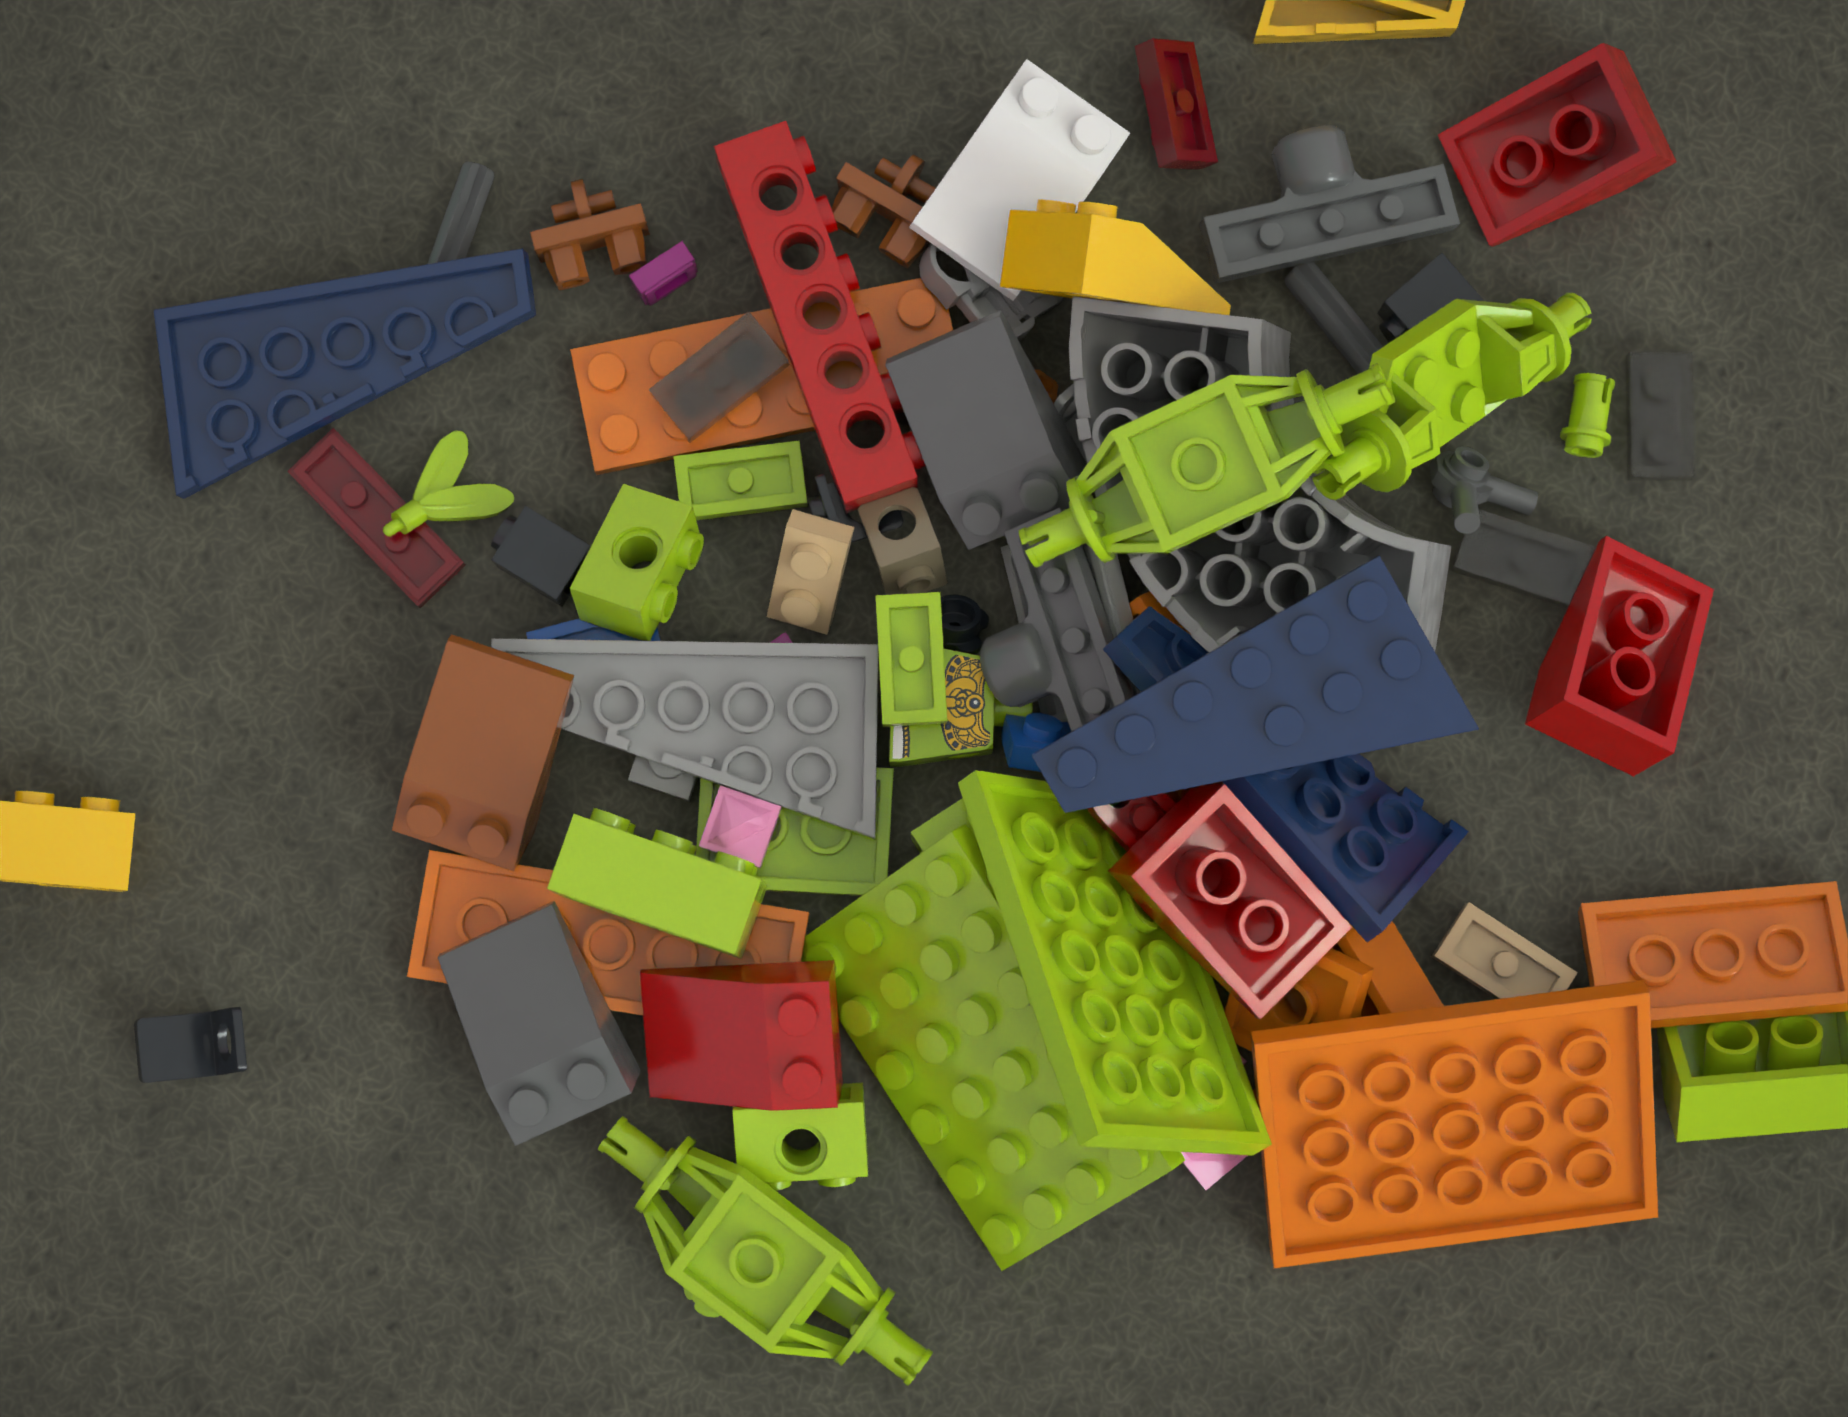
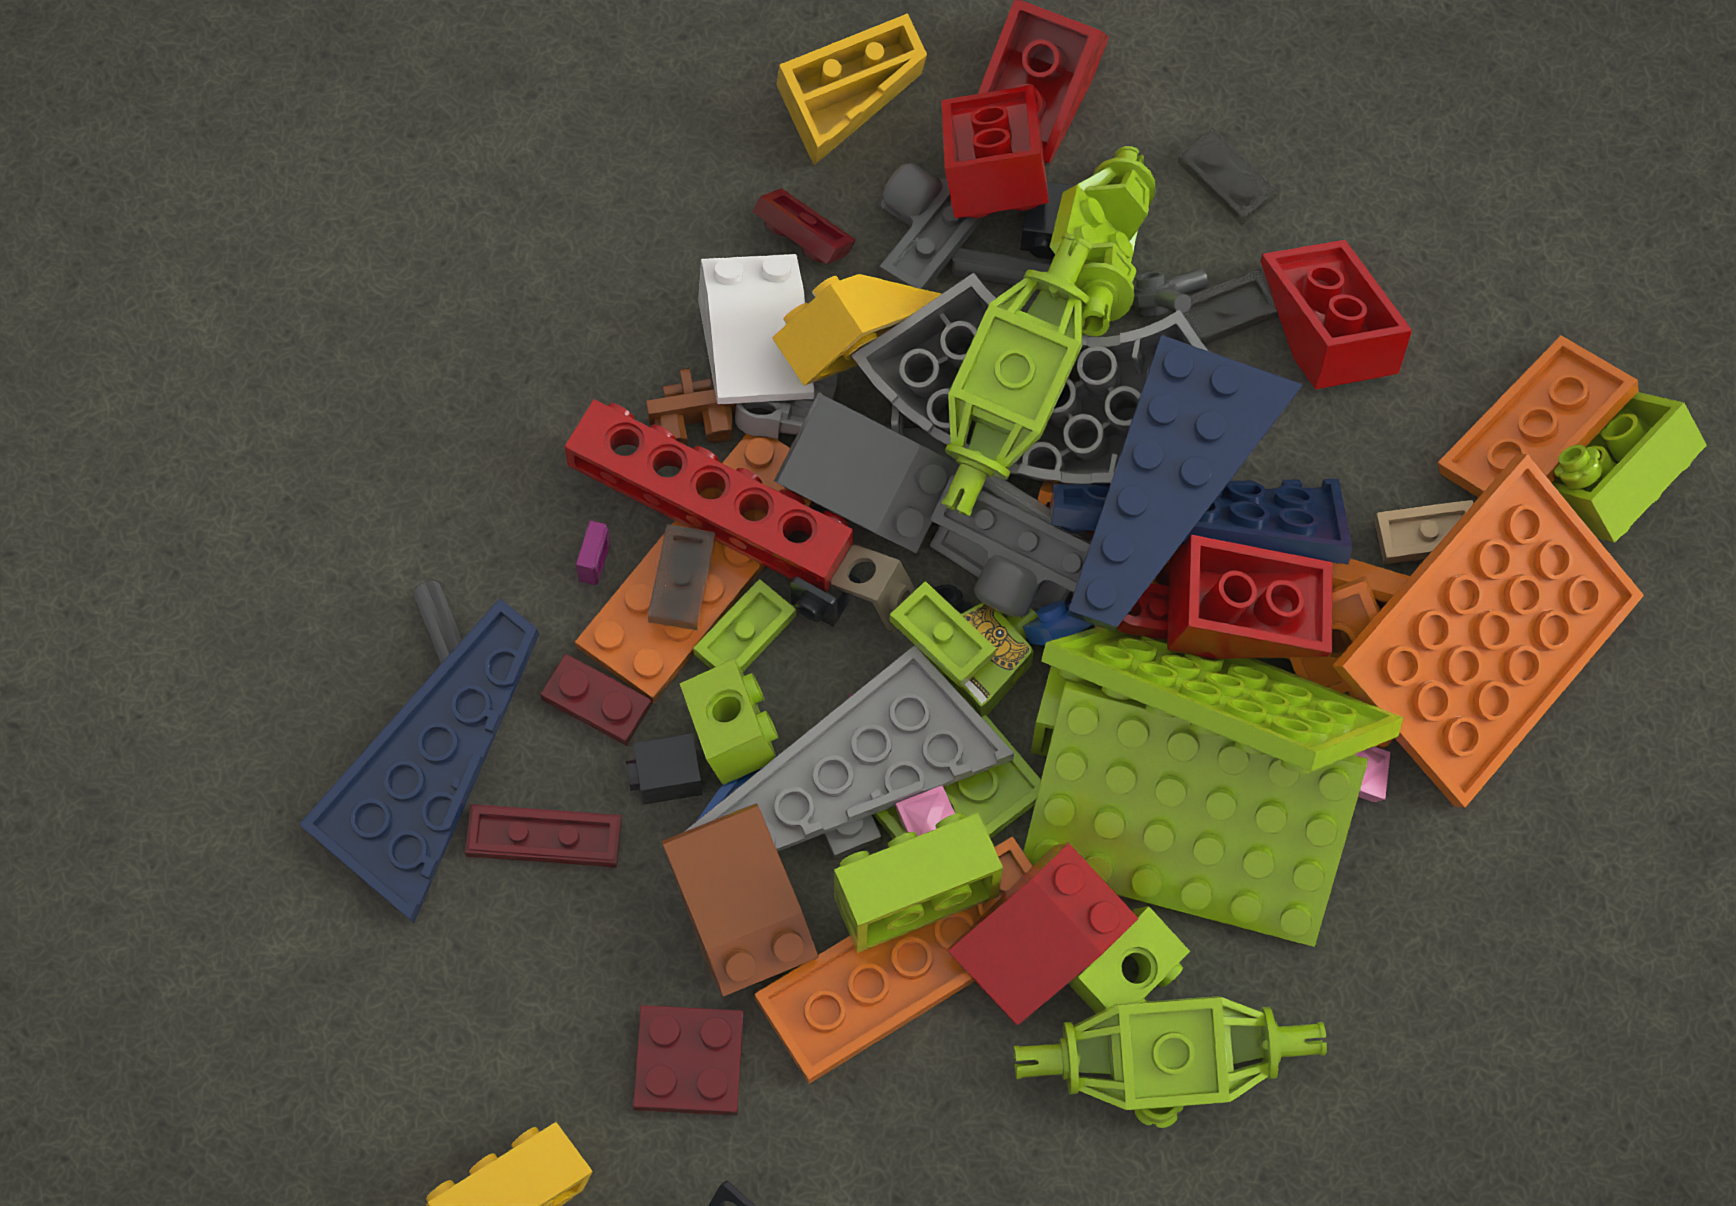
camera: 45 degrees left, 15 degrees down
(320, 856) = (688, 1060): none -> dark red plate
(440, 501) = (570, 790): lime piece -> none
(537, 1024) = (914, 1032): dark grey slope -> none
(542, 424) = (596, 699): none -> dark red plate
(564, 243) = (523, 560): dark orange hips -> none
(810, 571) = (835, 641): tan plate -> none
(1428, 192) = (994, 152): none -> red slope
(1588, 416) = (1193, 211): lime pin -> none
(1708, 1039) = (1578, 466): none -> lime plate

